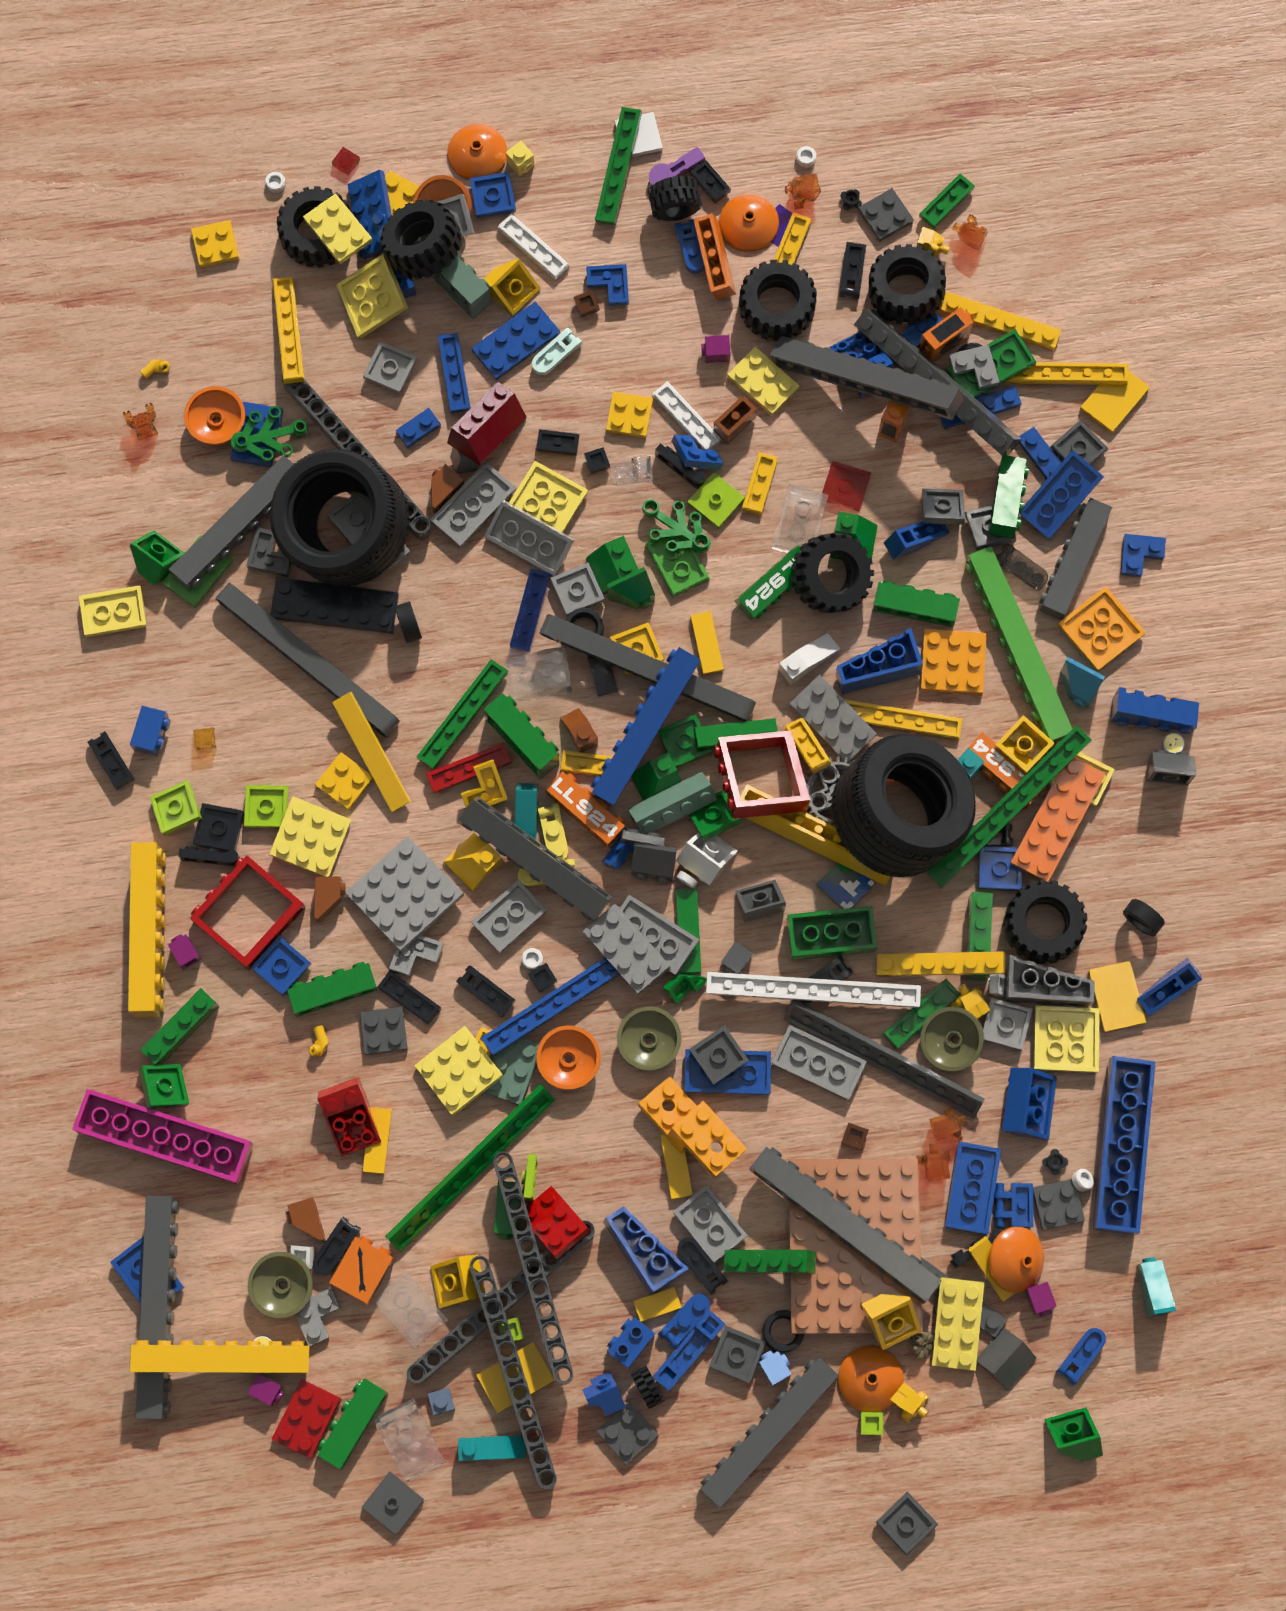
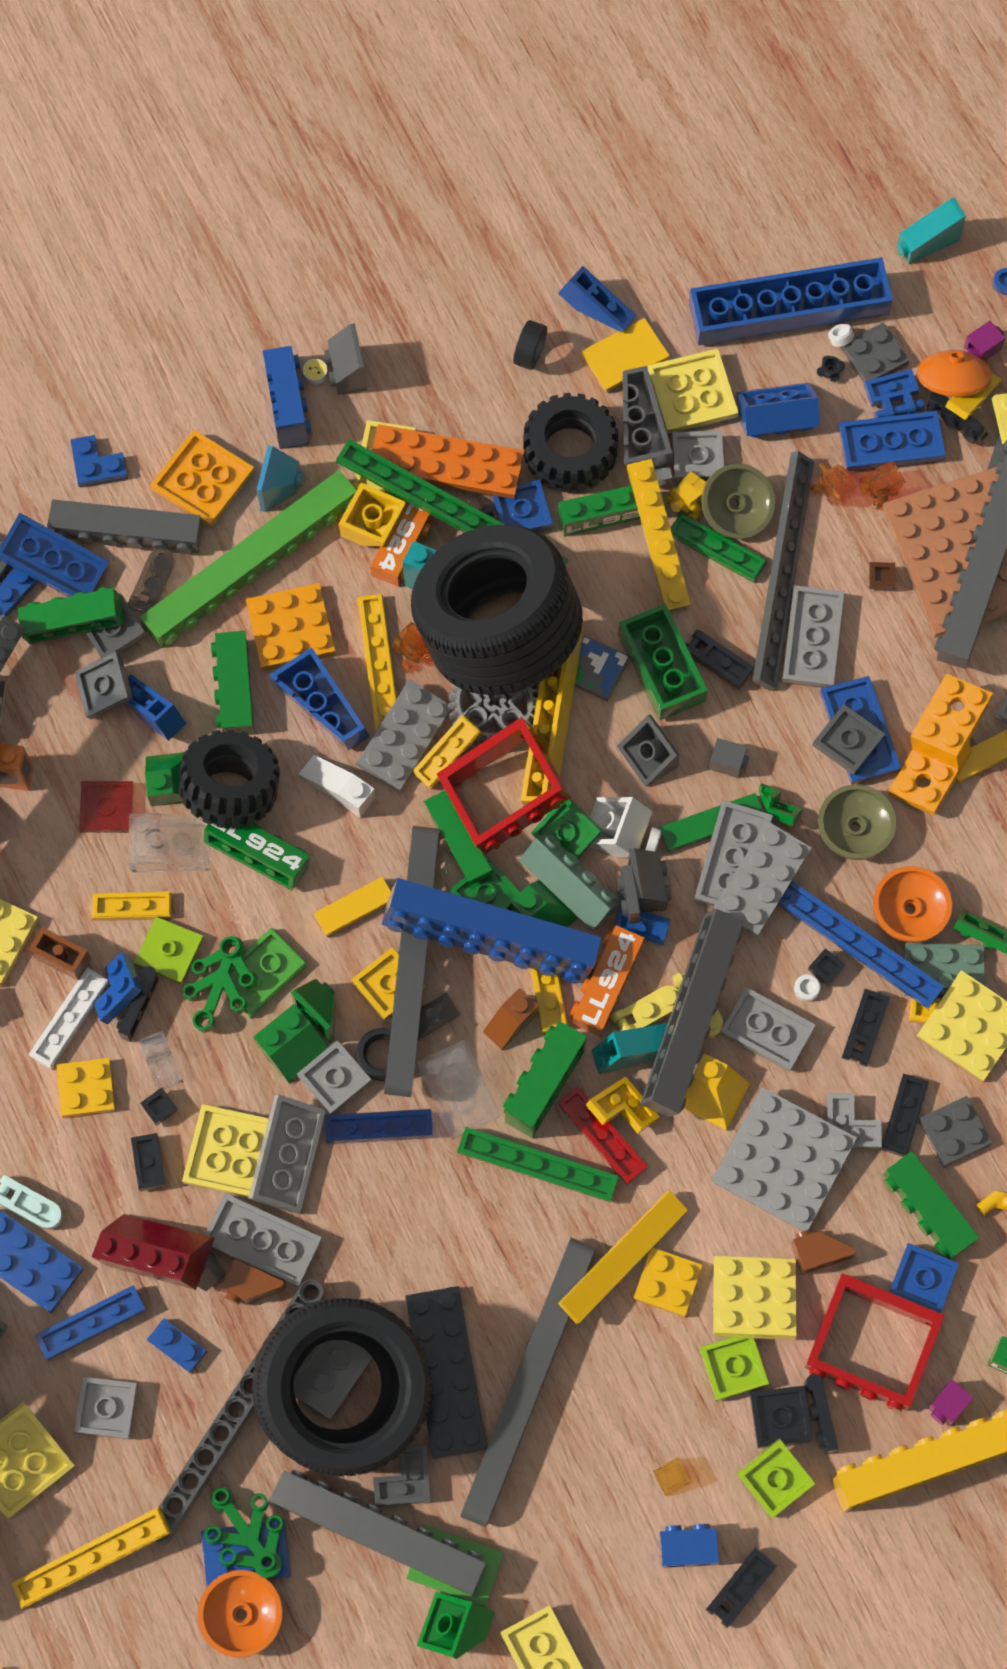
camera: 105 degrees left, 5 degrees down
(408, 622) = (443, 1265): black tyre -> none
(813, 989) = (736, 662): white plate -> none

